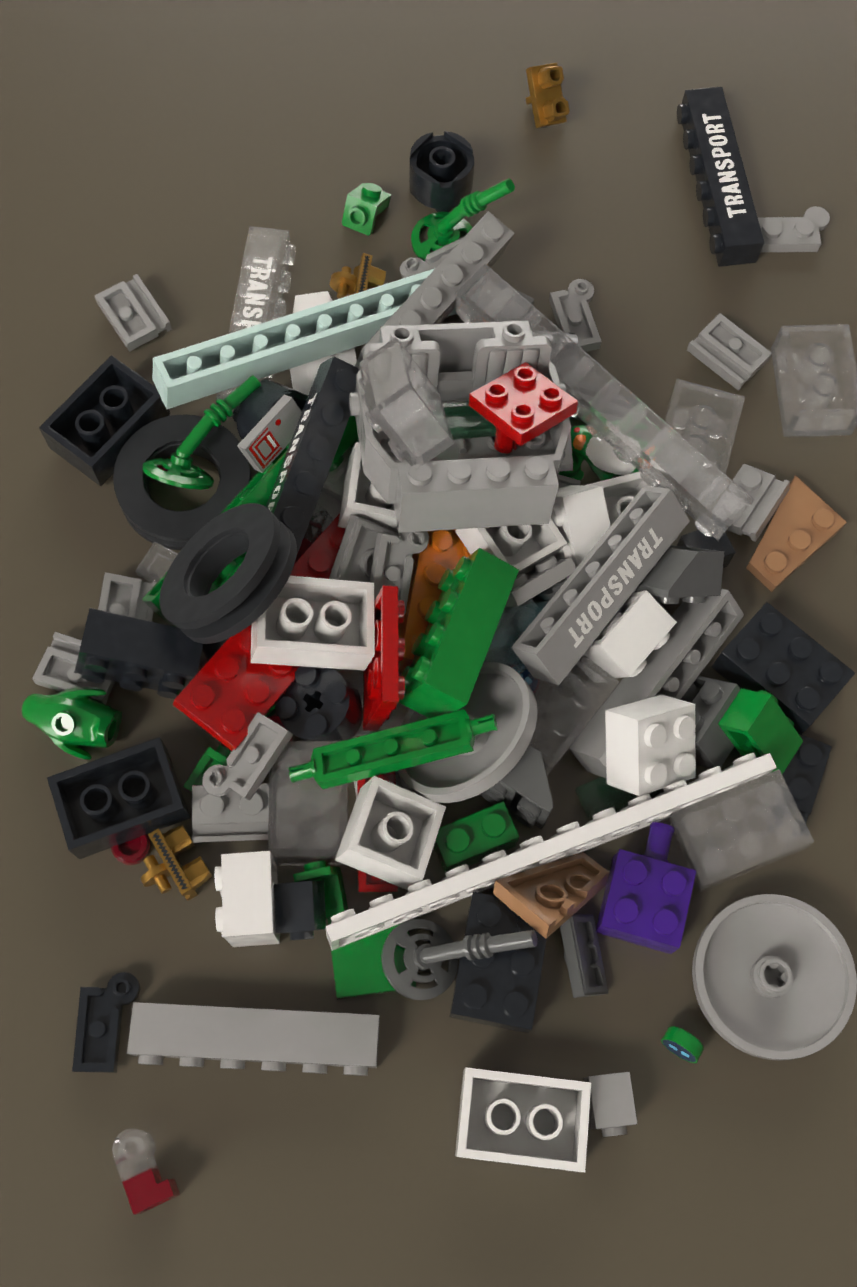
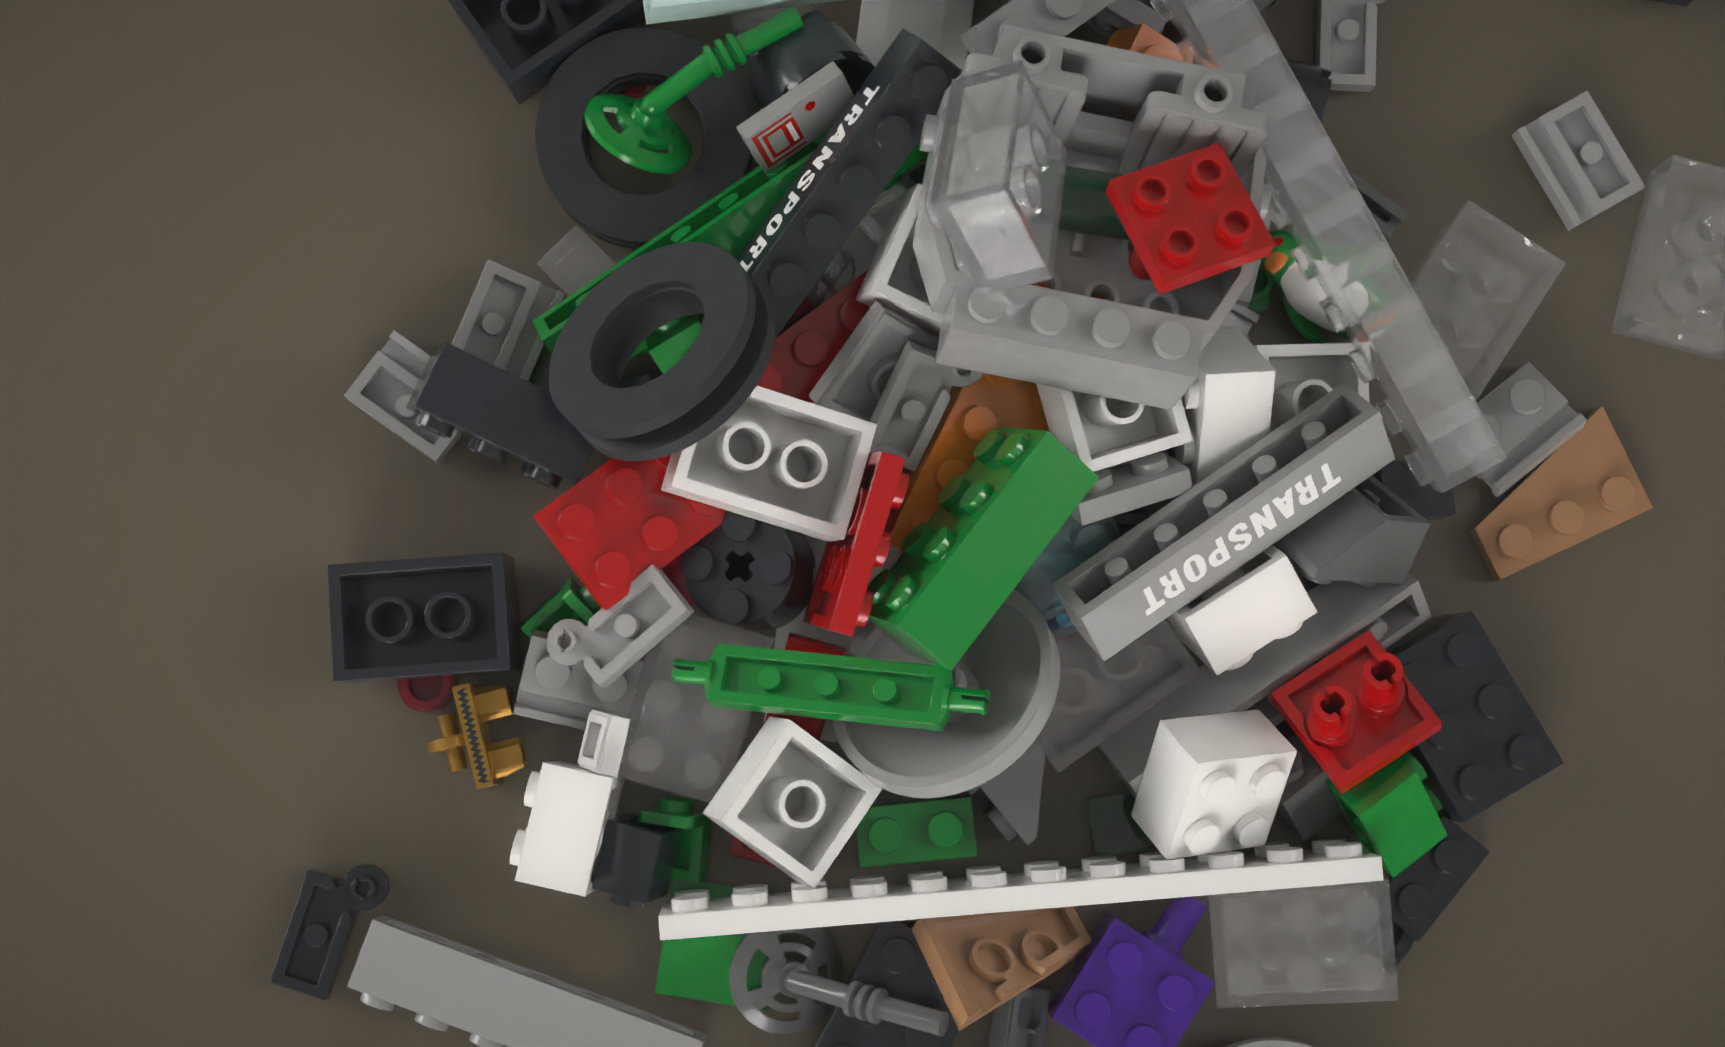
camera: 20 degrees right, 15 degrees up
(74, 719) = (389, 476): green animal -> none
(257, 834) = (603, 743): none -> white tile
(721, 672) = (1356, 711): none -> red plate

